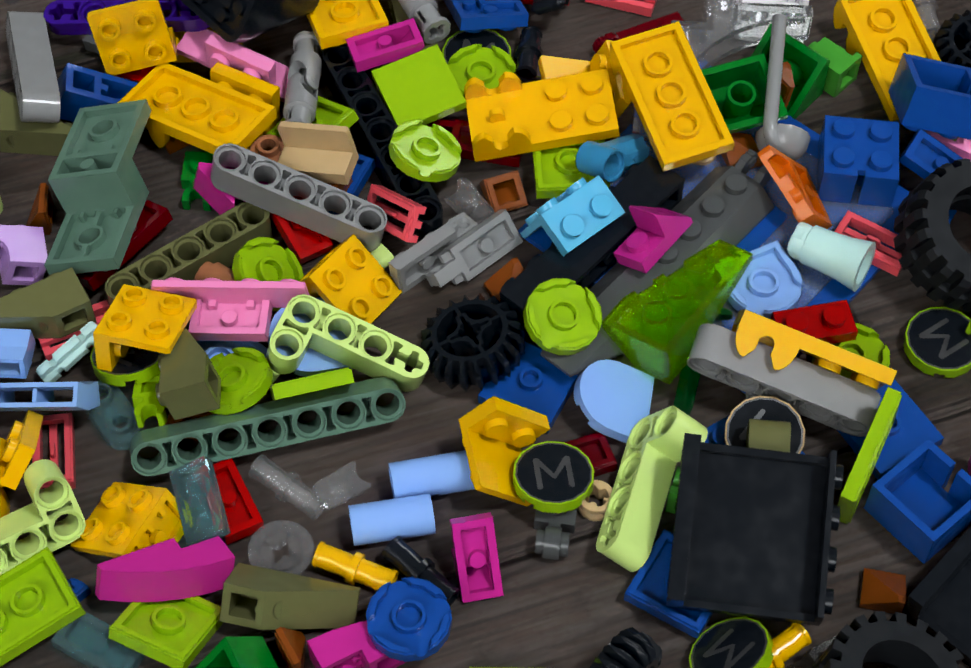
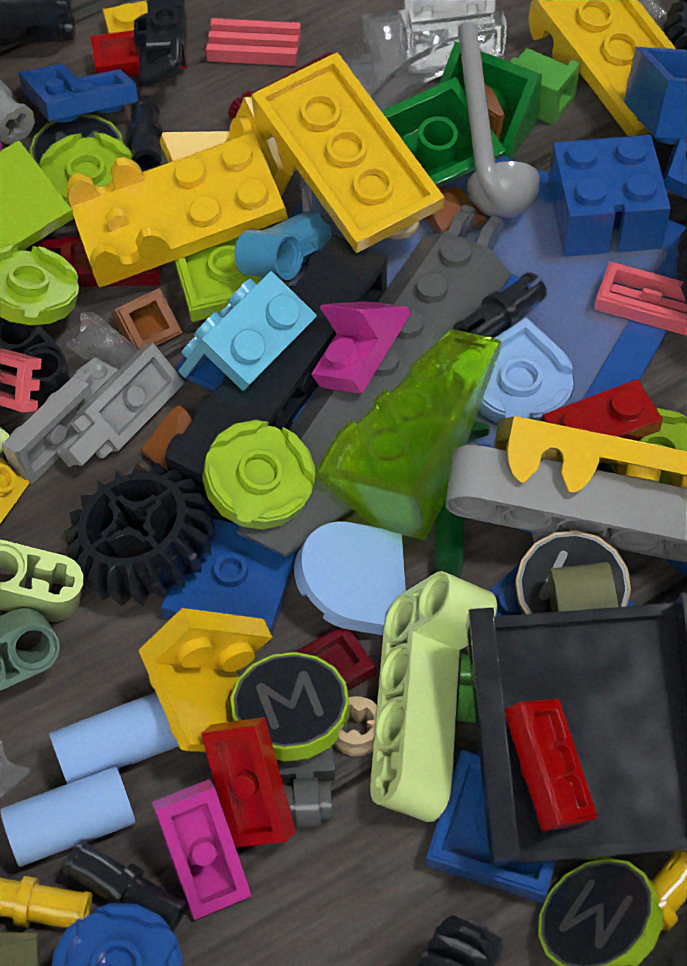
camera: 10 degrees left, 0 degrees up
(515, 520) = (248, 782): none -> red plate
(718, 545) = (550, 764): none -> red plate
(761, 231) = (503, 308): none -> black pin
(796, 187) = (538, 244): orange wing -> none
(832, 253) = (604, 321): light aqua plant -> none

